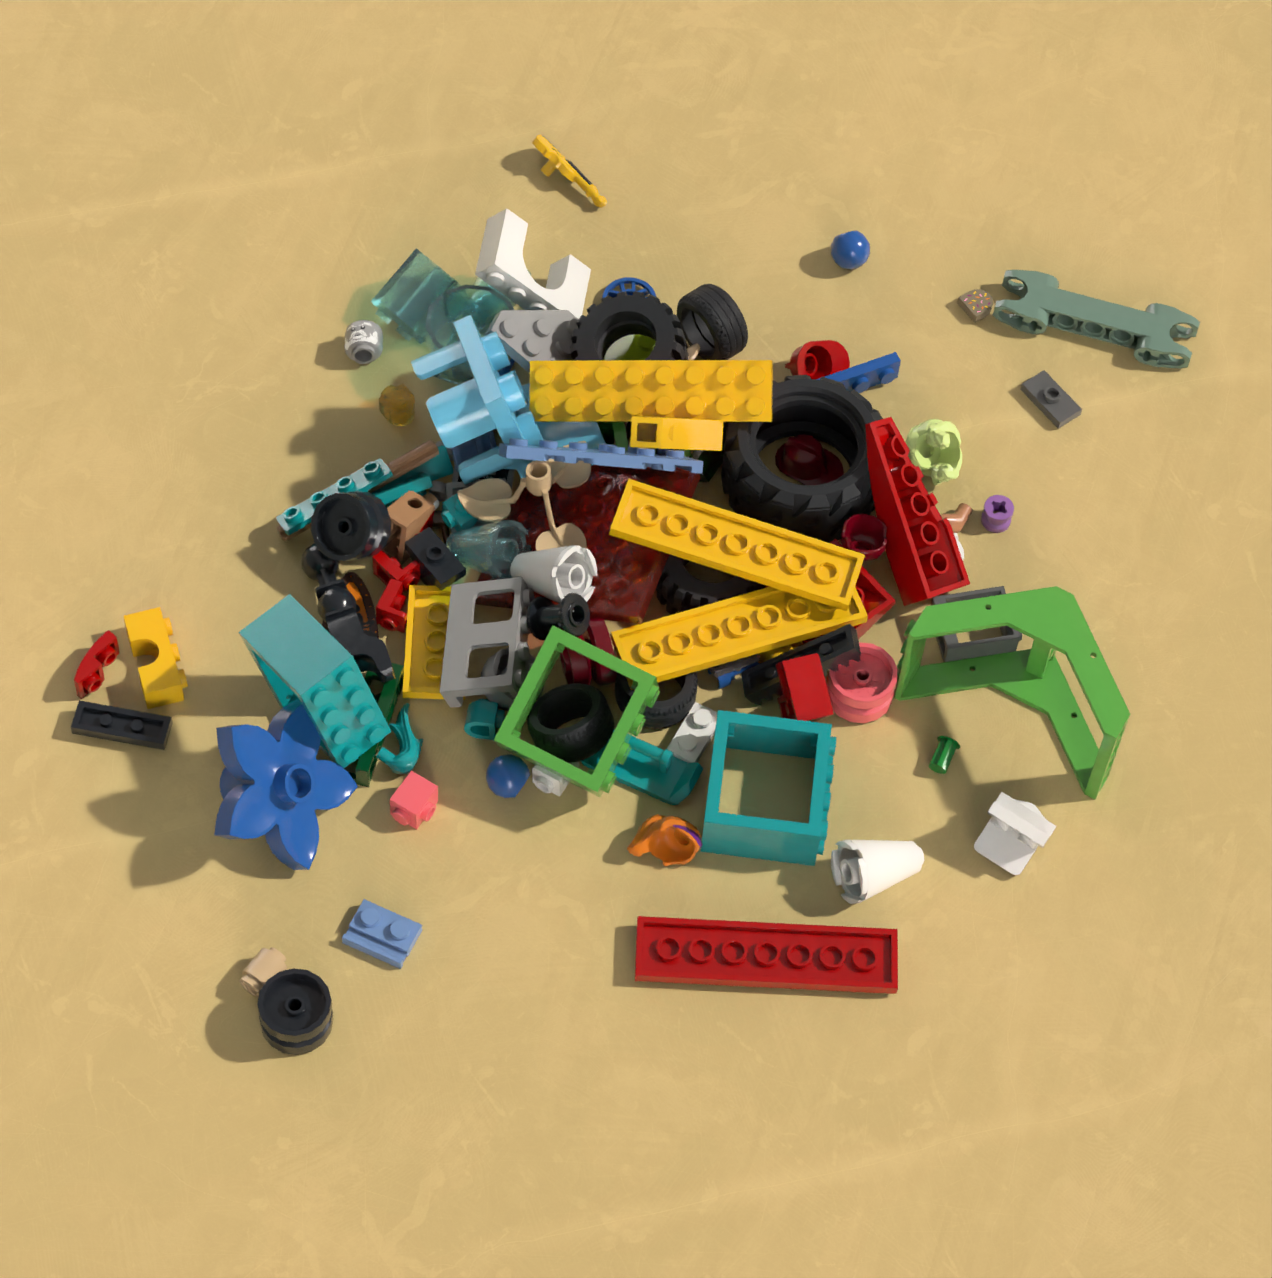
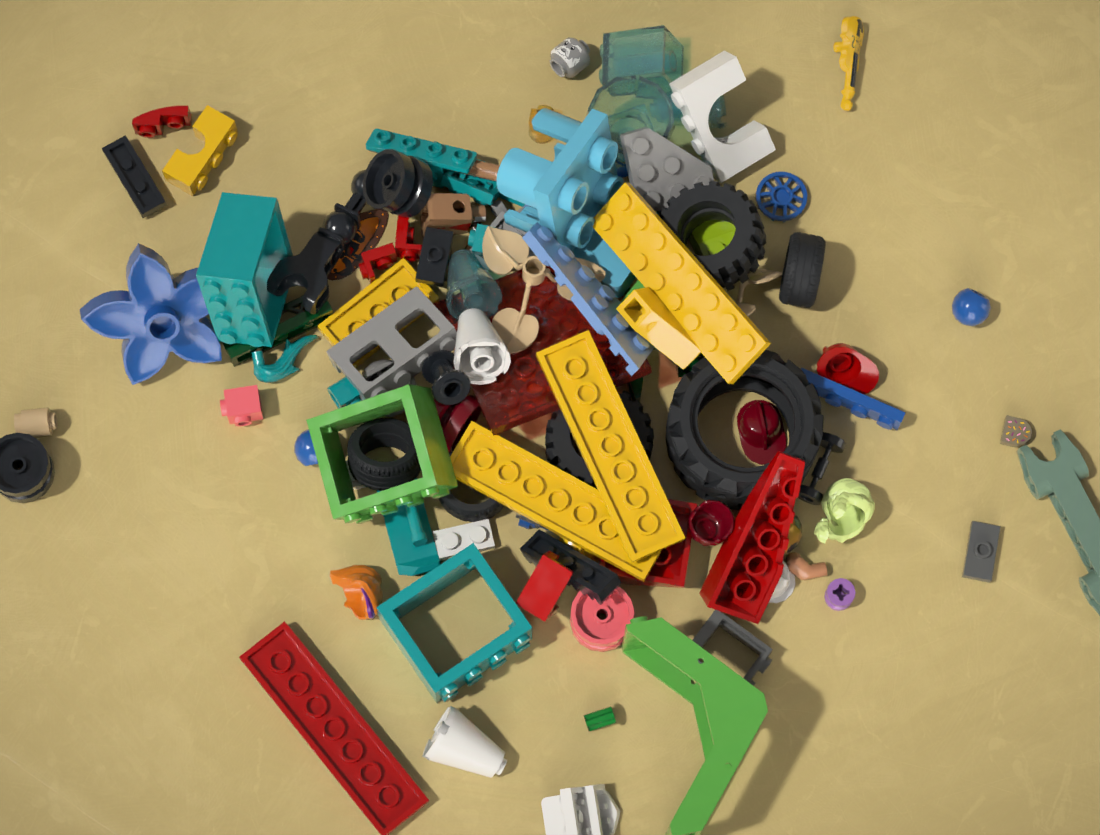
camera: 50 degrees right, 15 degrees up
(382, 934) = (131, 470): medium blue plate -> none

